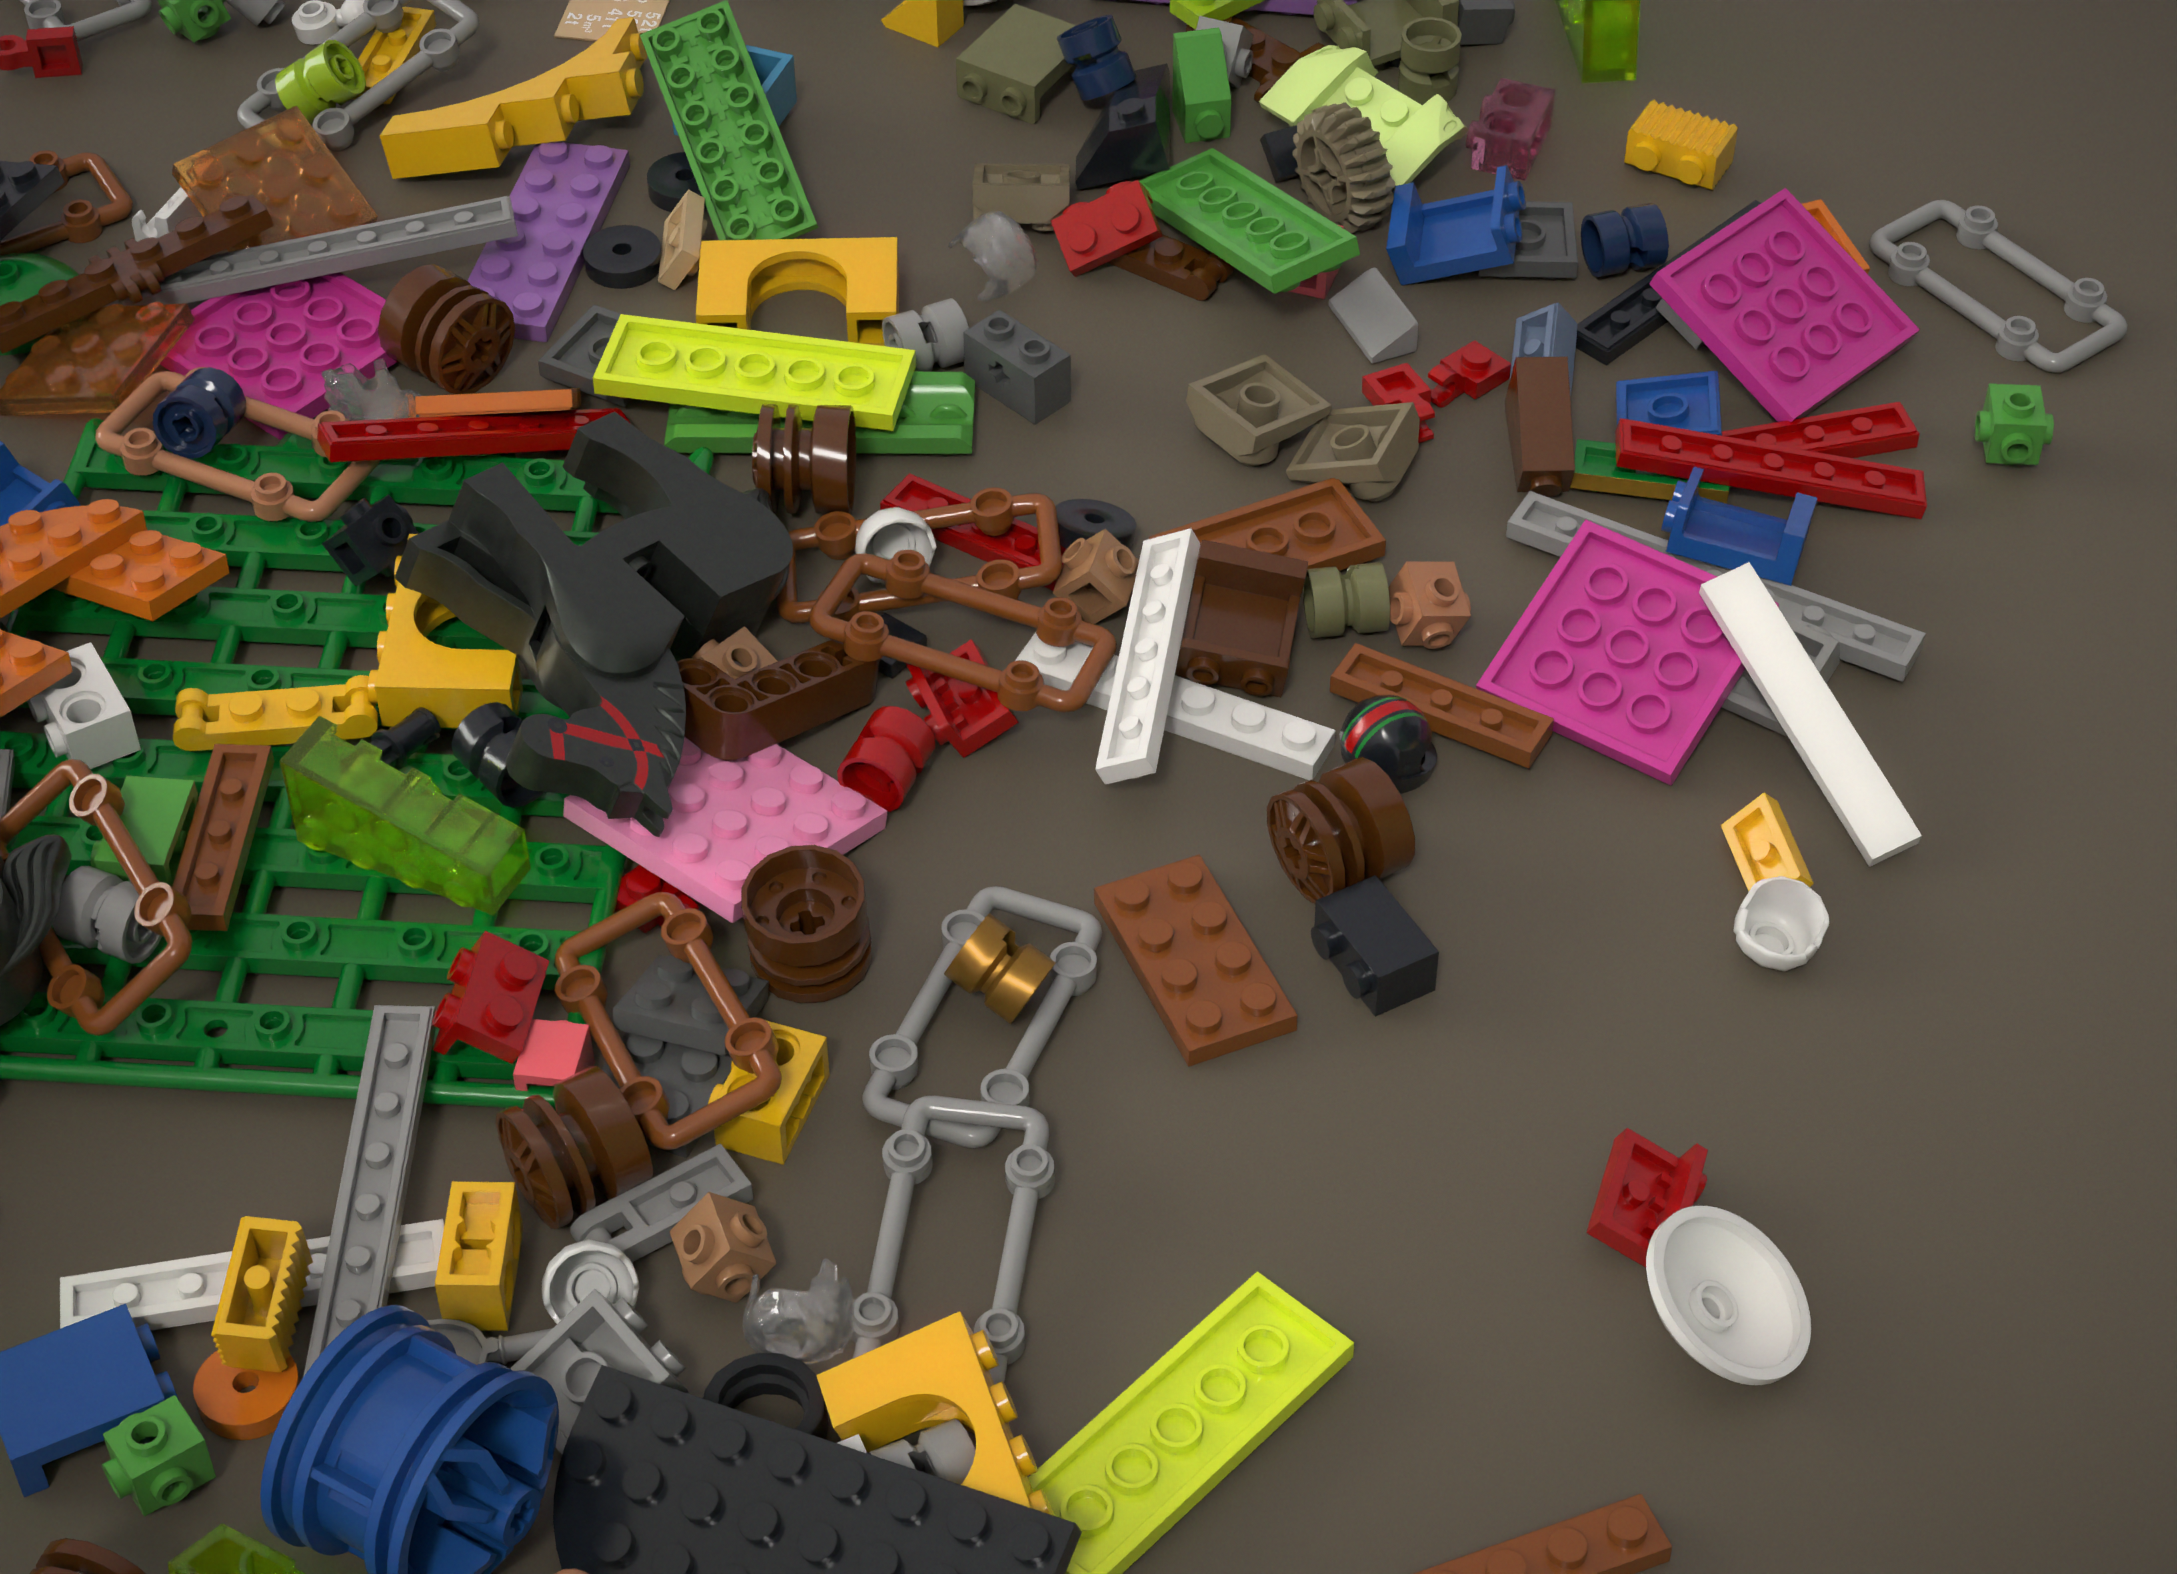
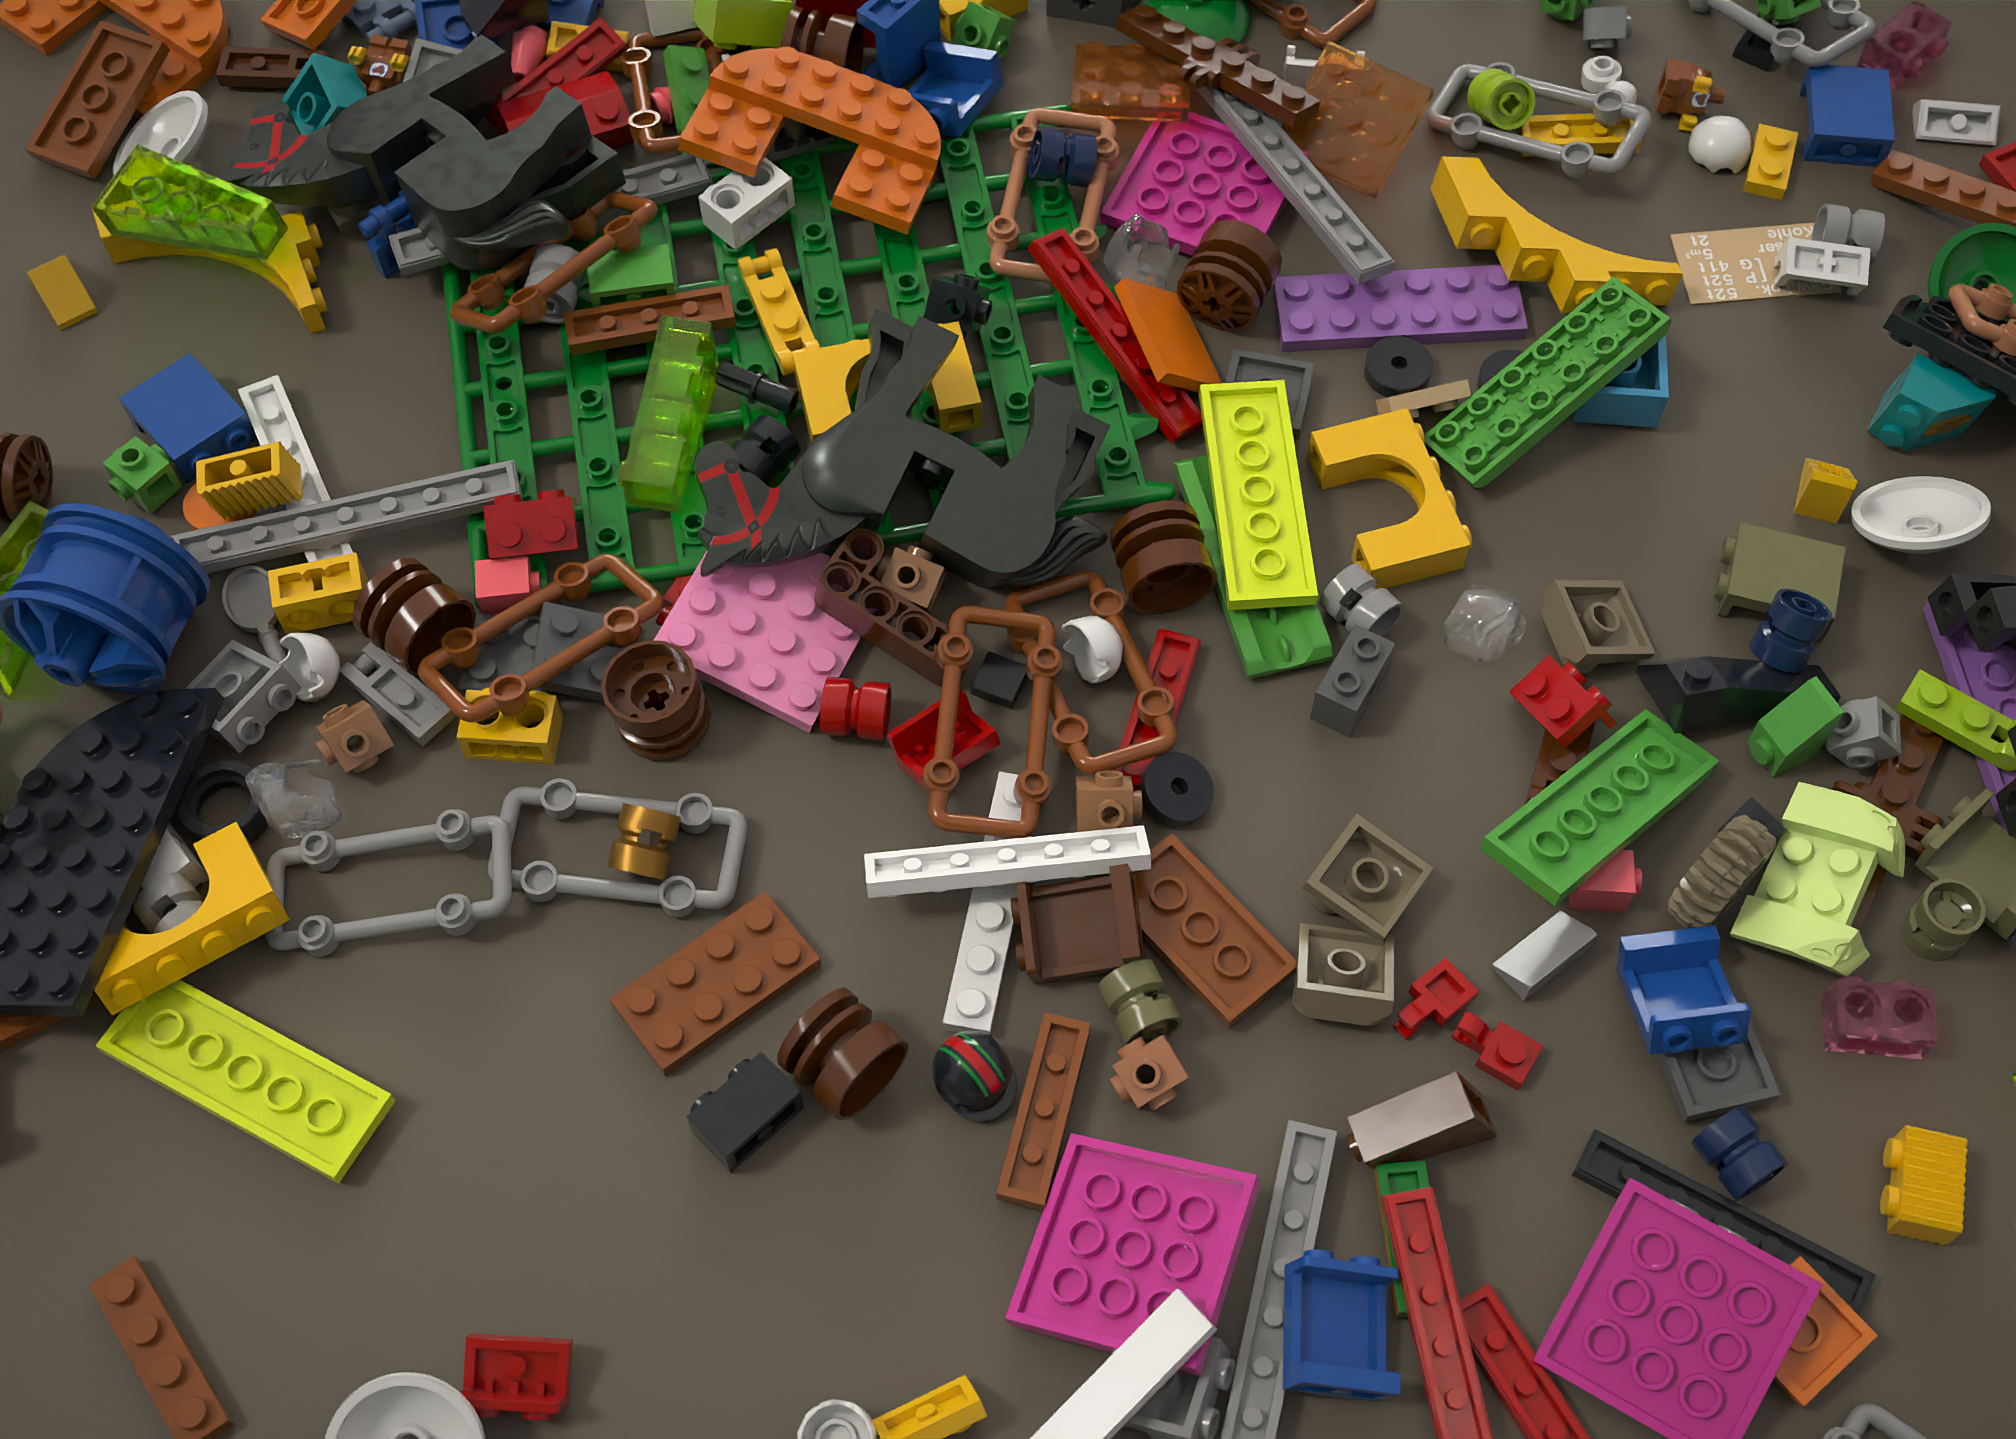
camera: 75 degrees right, 15 degrees up
(1546, 334) = (1546, 1112): sand blue slope -> none
(1673, 401) = (1500, 1241): blue plate -> none

